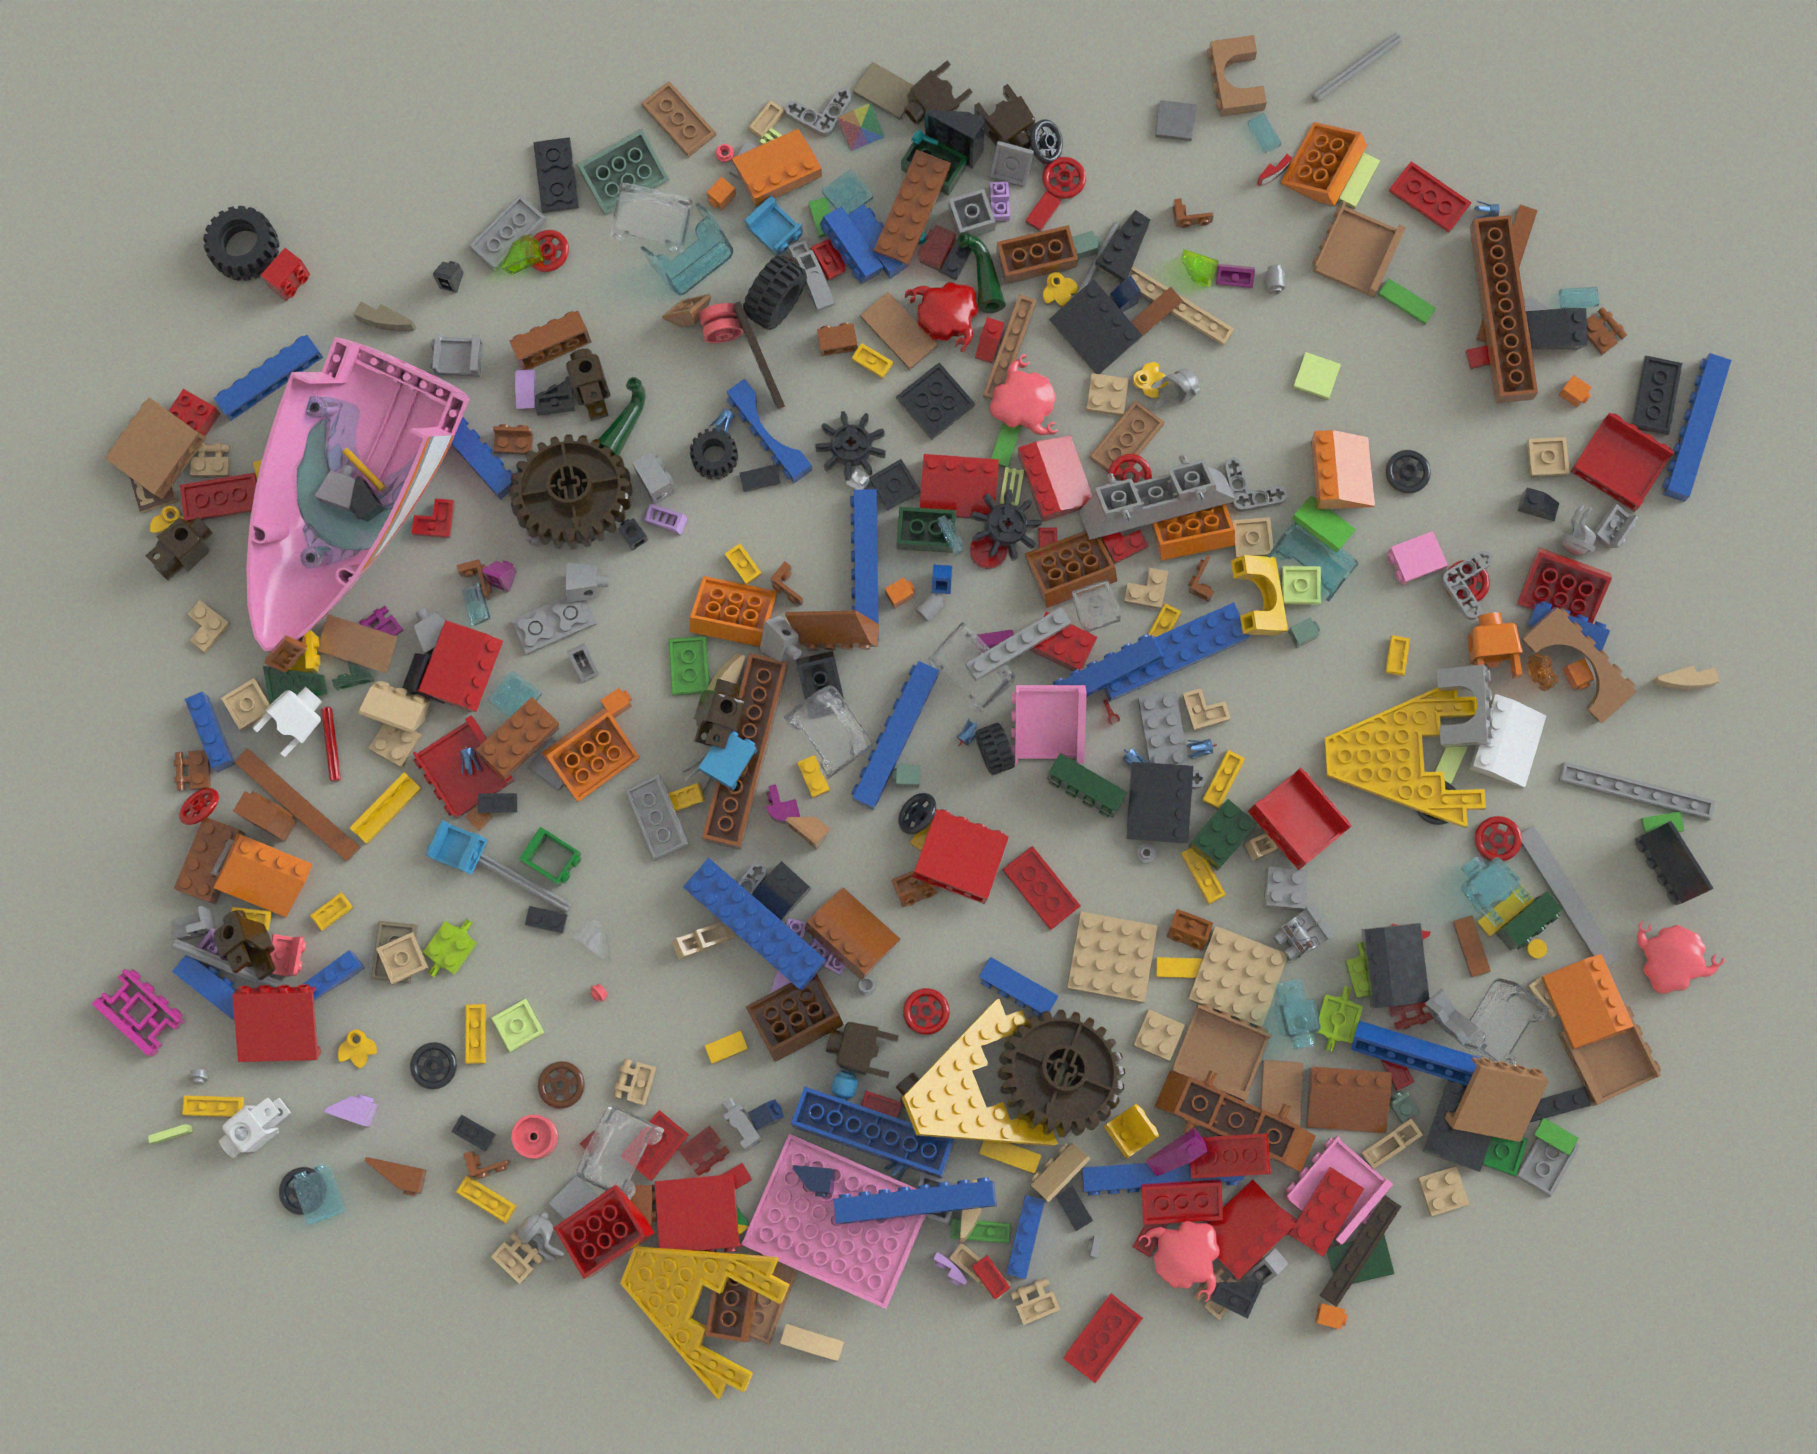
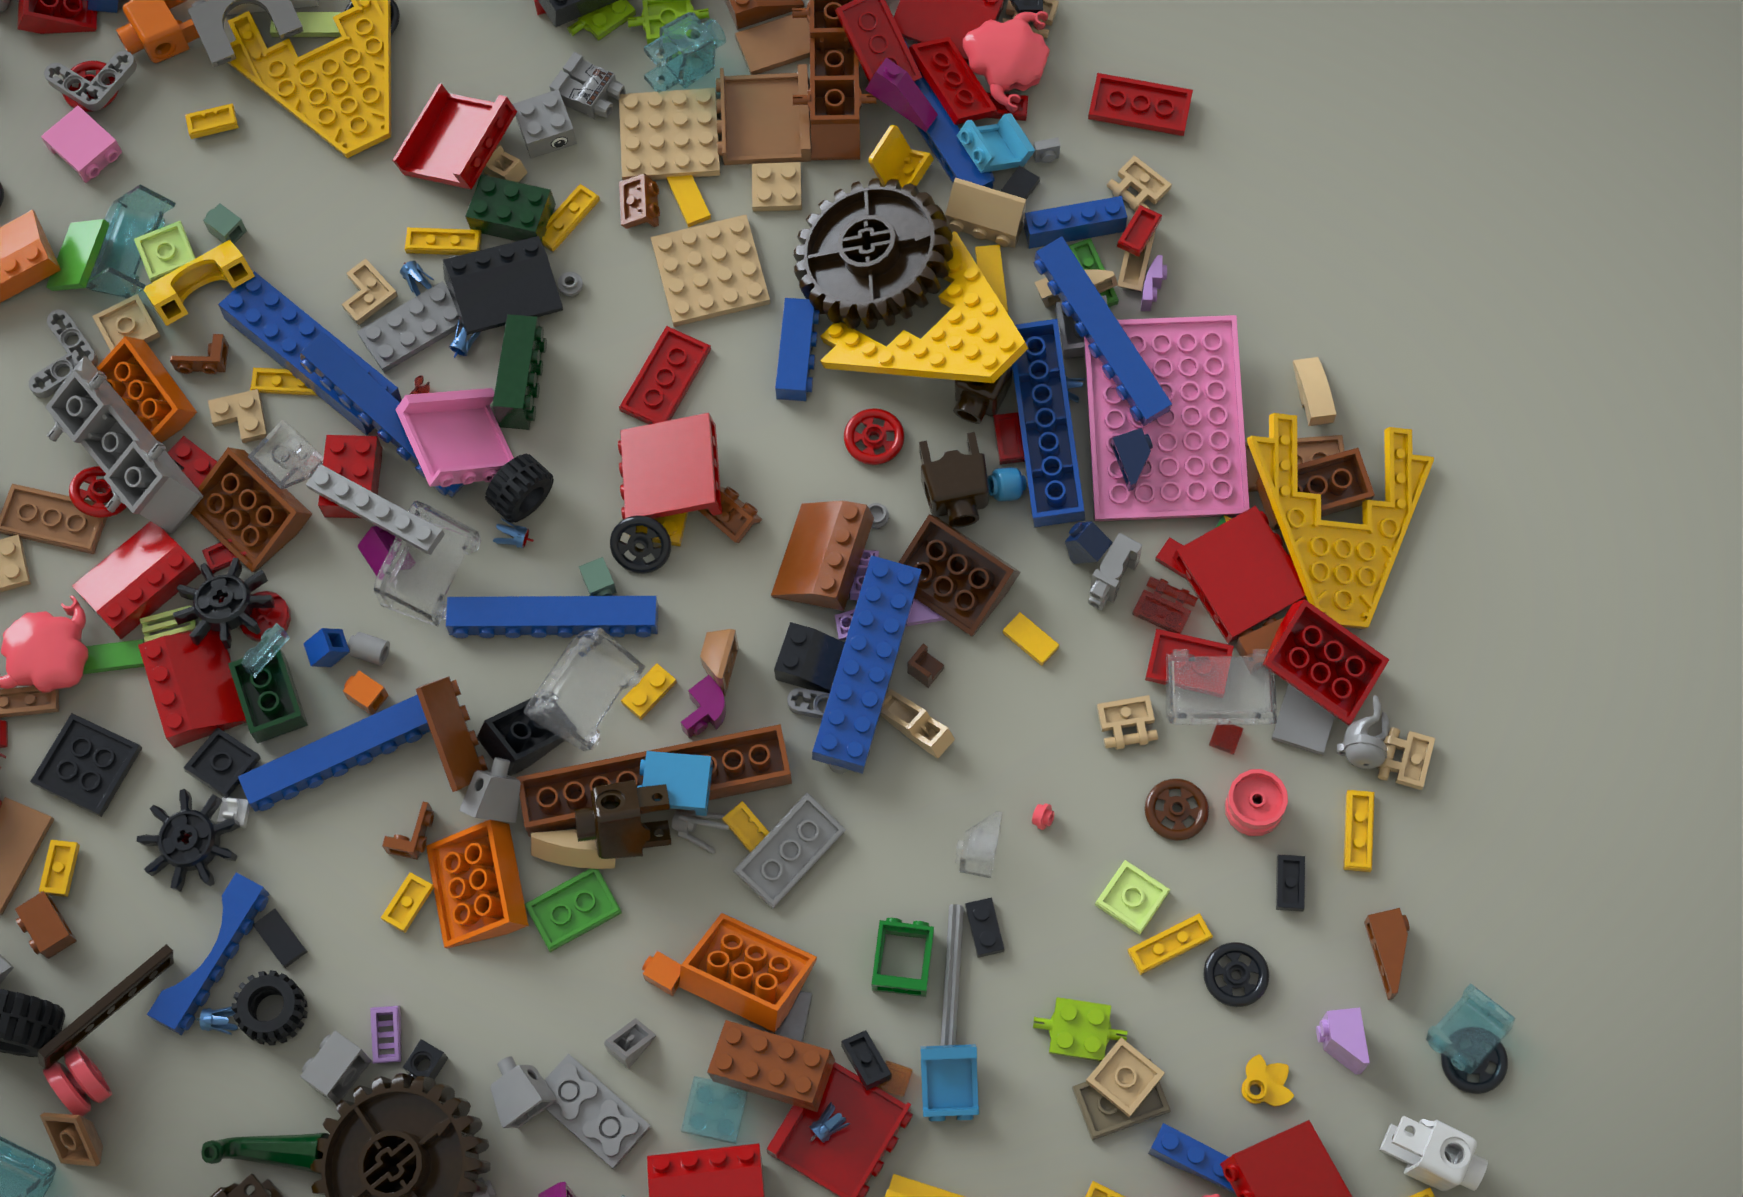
camera: 115 degrees left, 10 degrees down
(473, 1163) = (1332, 848): dark orange bracket -> none
(739, 965) = (924, 666): none -> reddish brown panel
(1114, 1208) = (996, 145): none -> medium azure panel

